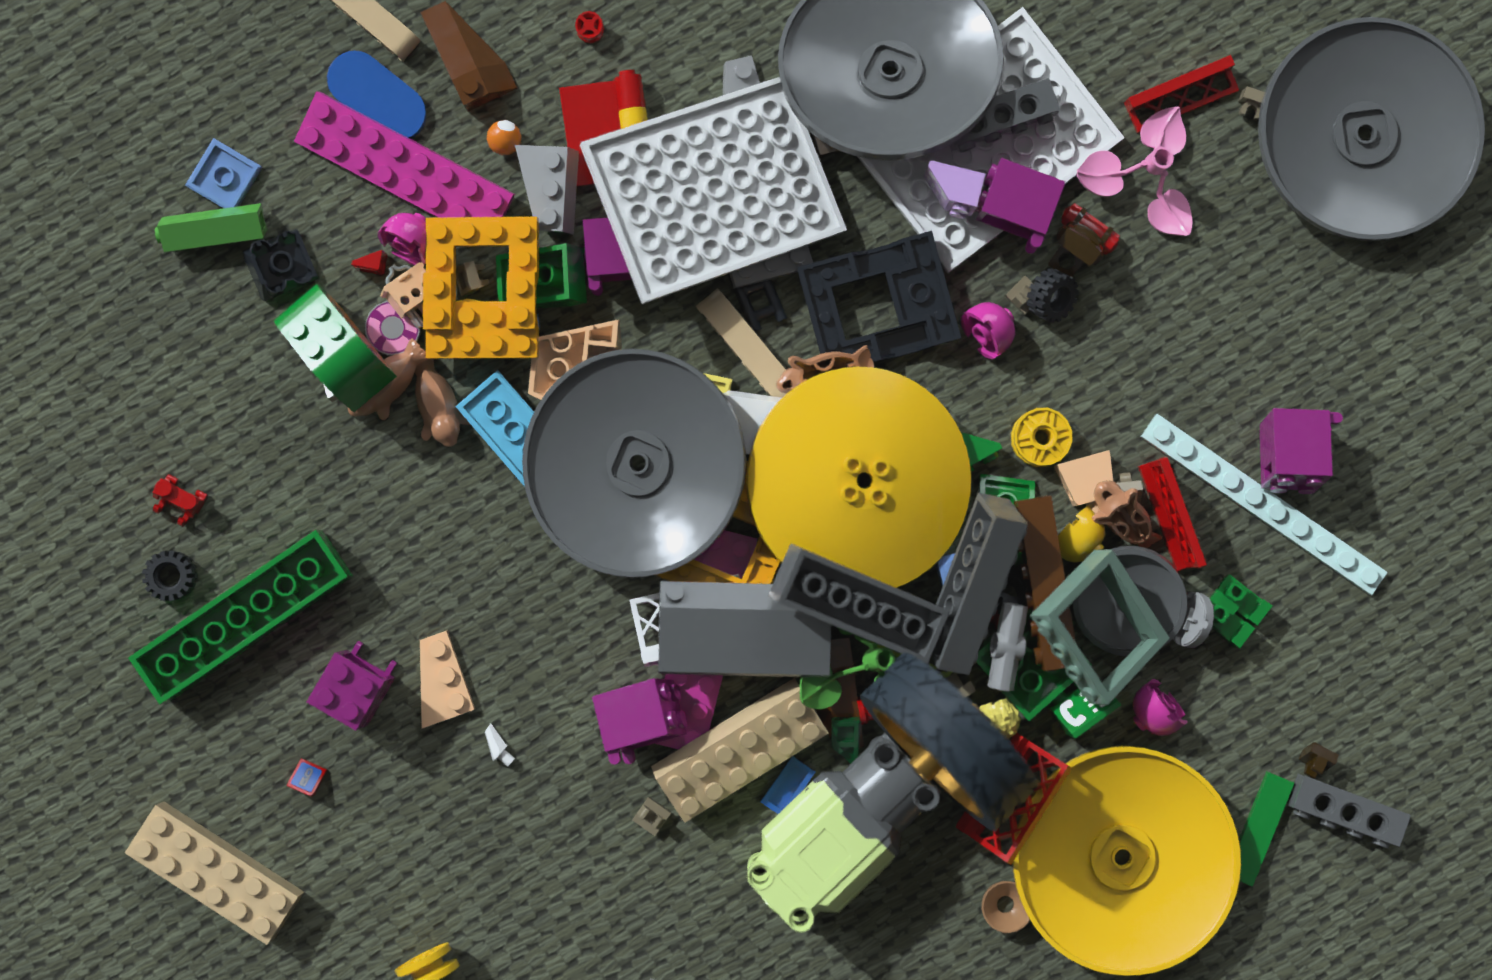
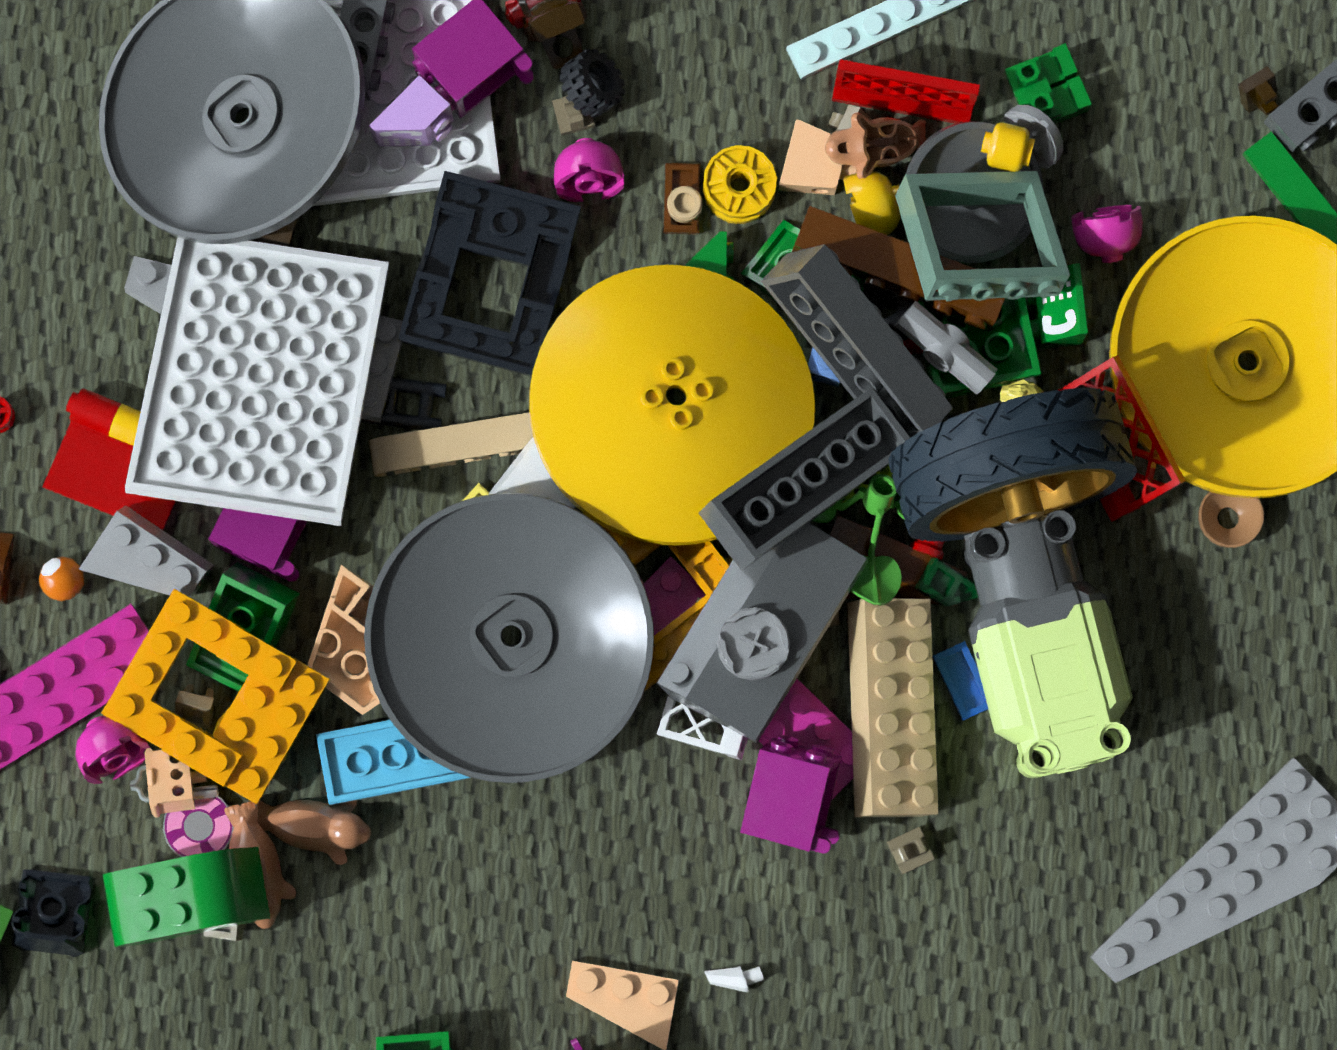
camera: 60 degrees left, 5 degrees down
(371, 263) = (113, 807): red slope -> none
(724, 632) = (753, 644): none -> light grey tile
(807, 368) = (516, 392): nougat animal -> none
(1005, 407) = (684, 204): none -> tan tile
(1008, 403) = (676, 176): none -> reddish brown tile
(1174, 608) = (1008, 147): none -> yellow head

